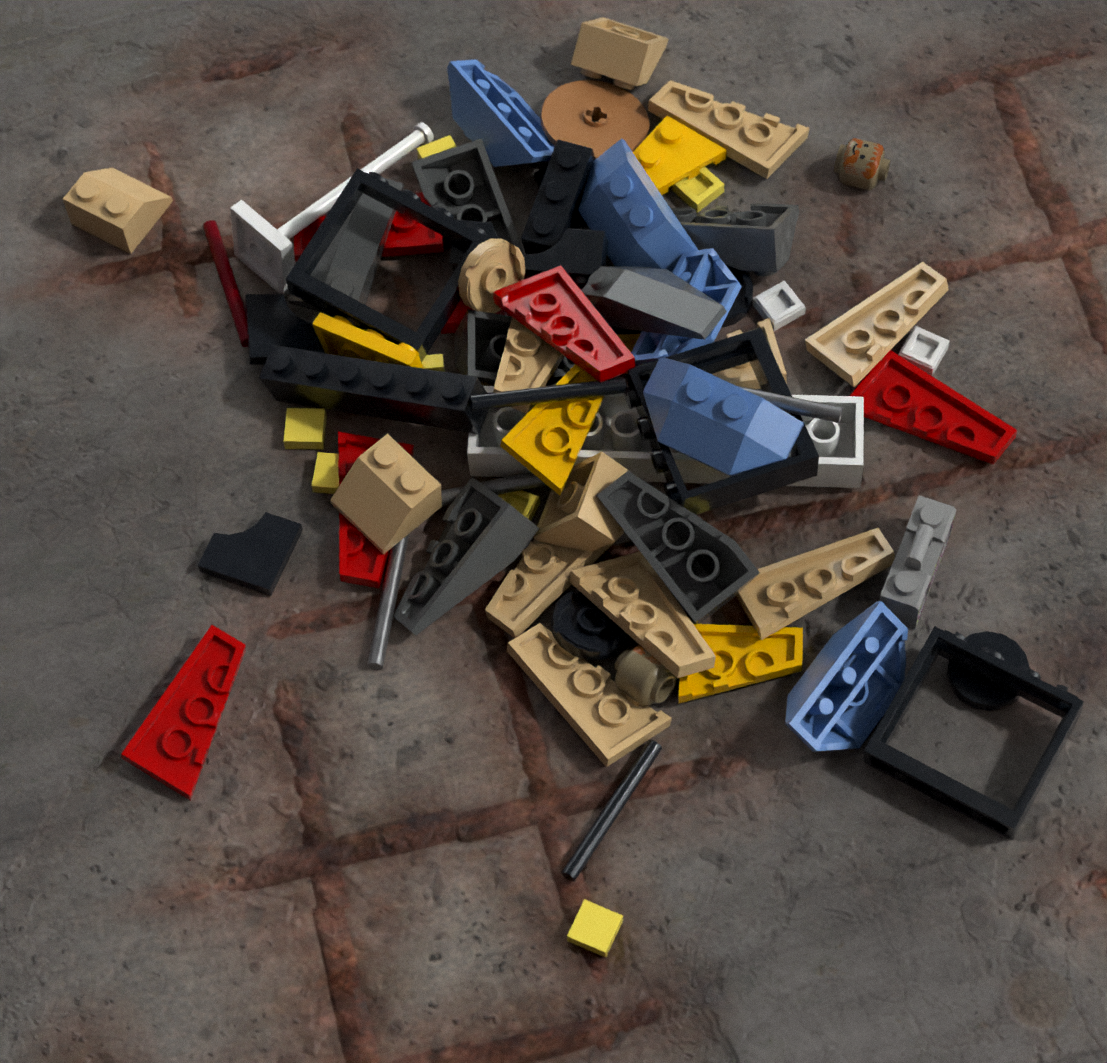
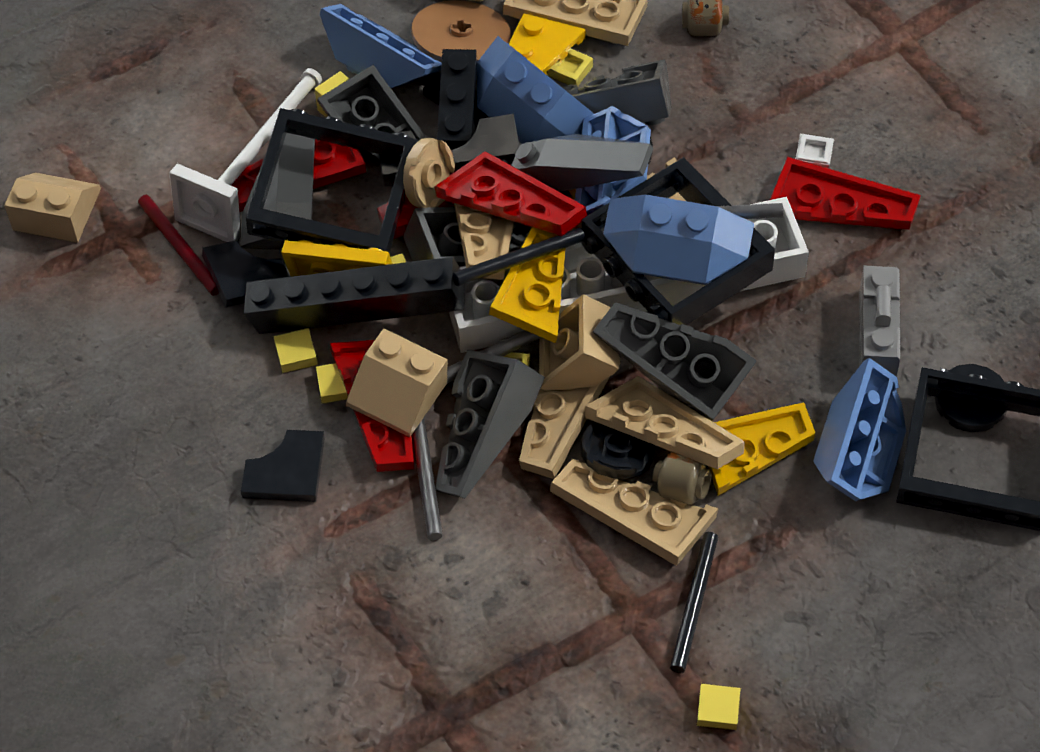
camera: 20 degrees left, 5 degrees down
(184, 721) = (277, 632): red wing -> none
(779, 305) = (677, 144): white tile -> none
(811, 579) = (796, 360): tan wing -> none
(873, 327) = (767, 142): tan wing -> none

